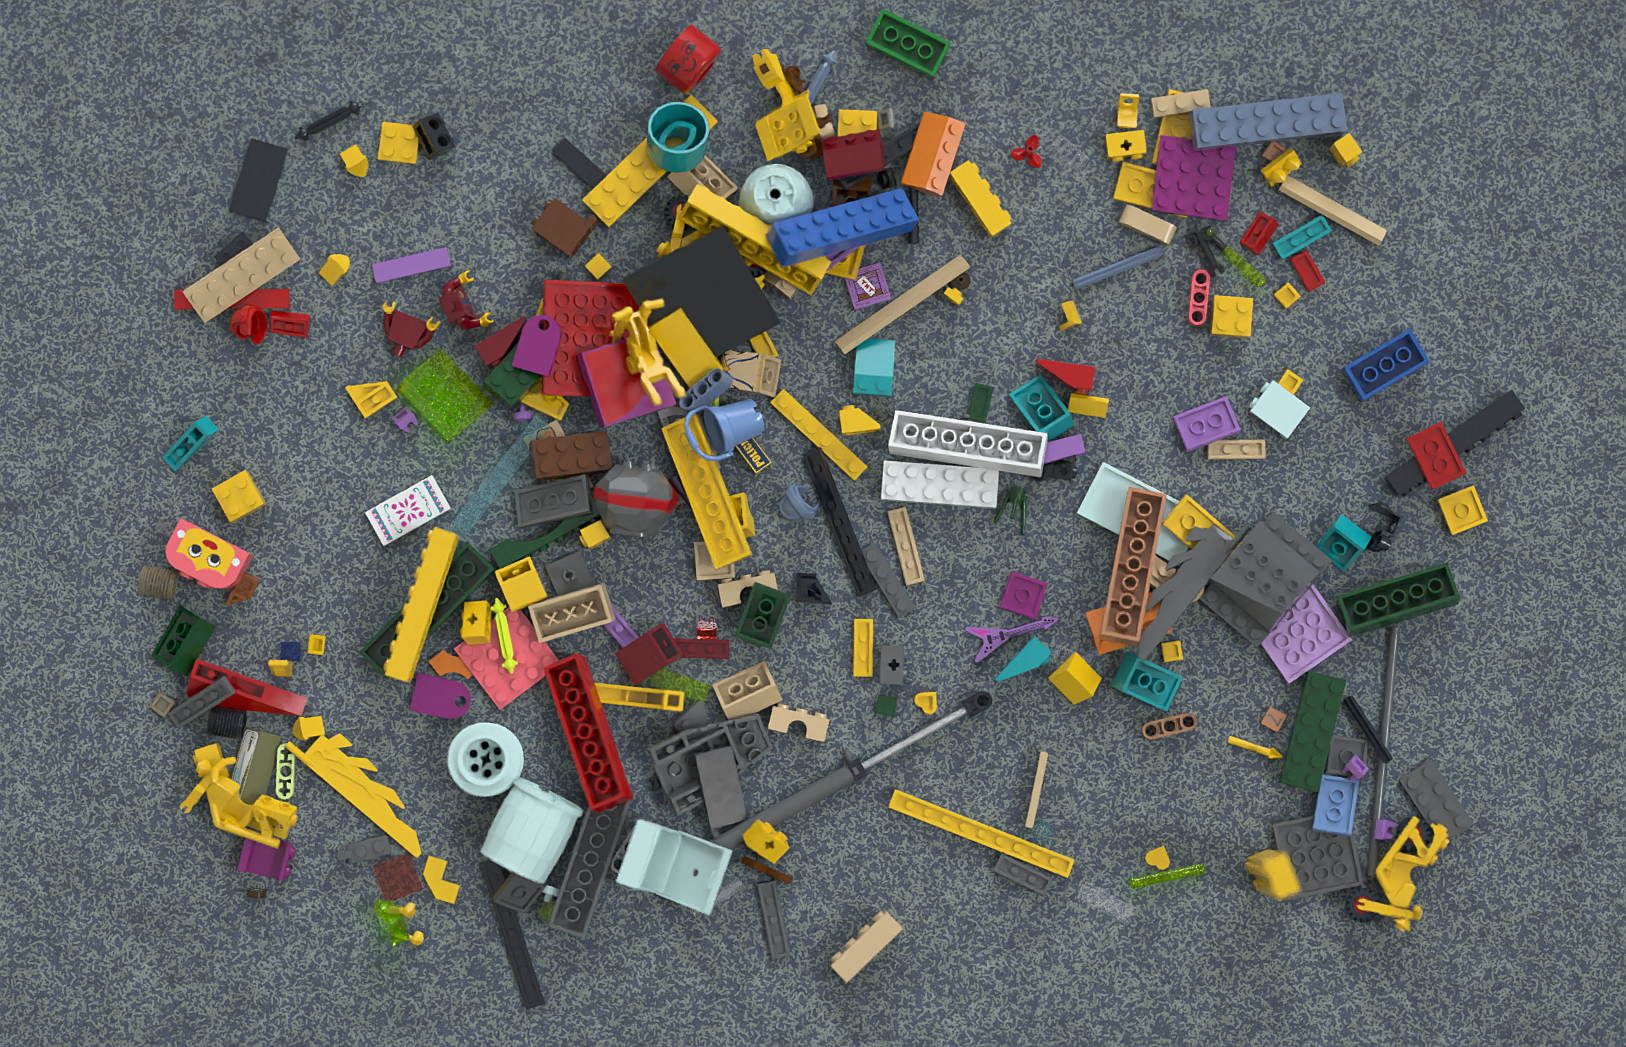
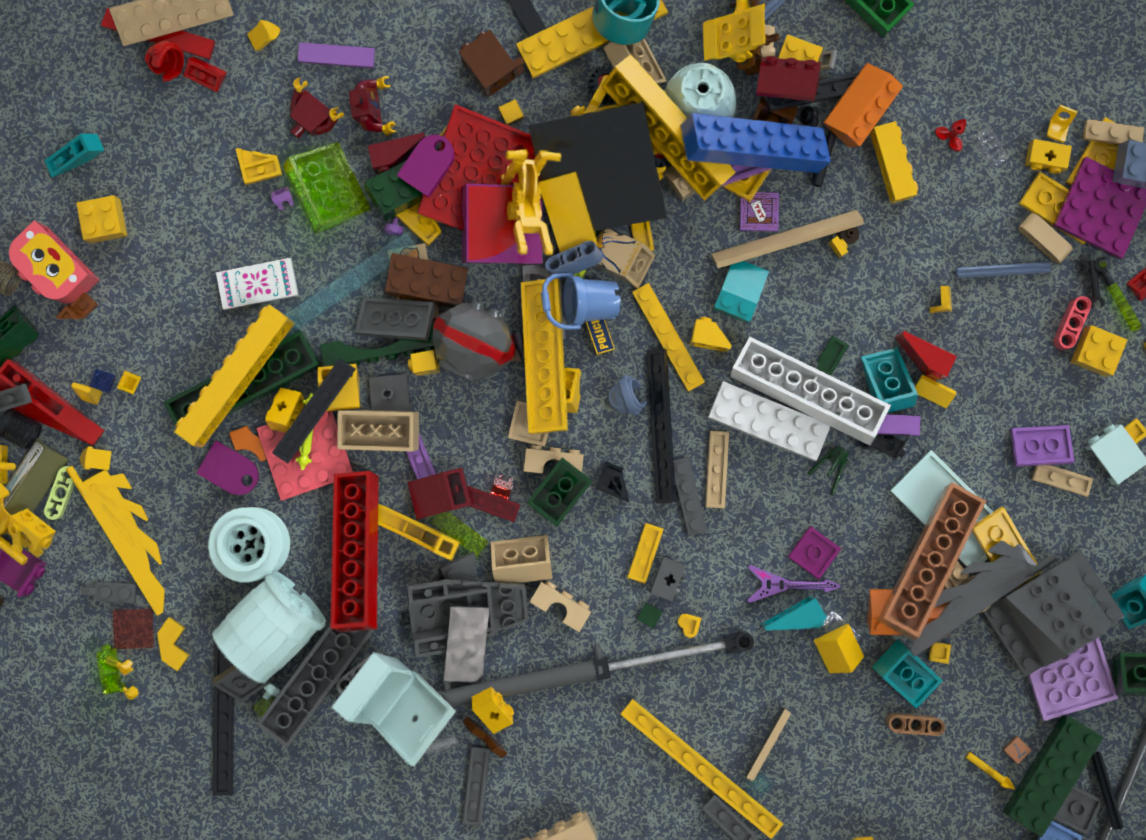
camera: 25 degrees right, 0 degrees up
(505, 613) = (313, 410): none -> black plate
(1356, 767) = (1085, 823): medium lavender tile -> none

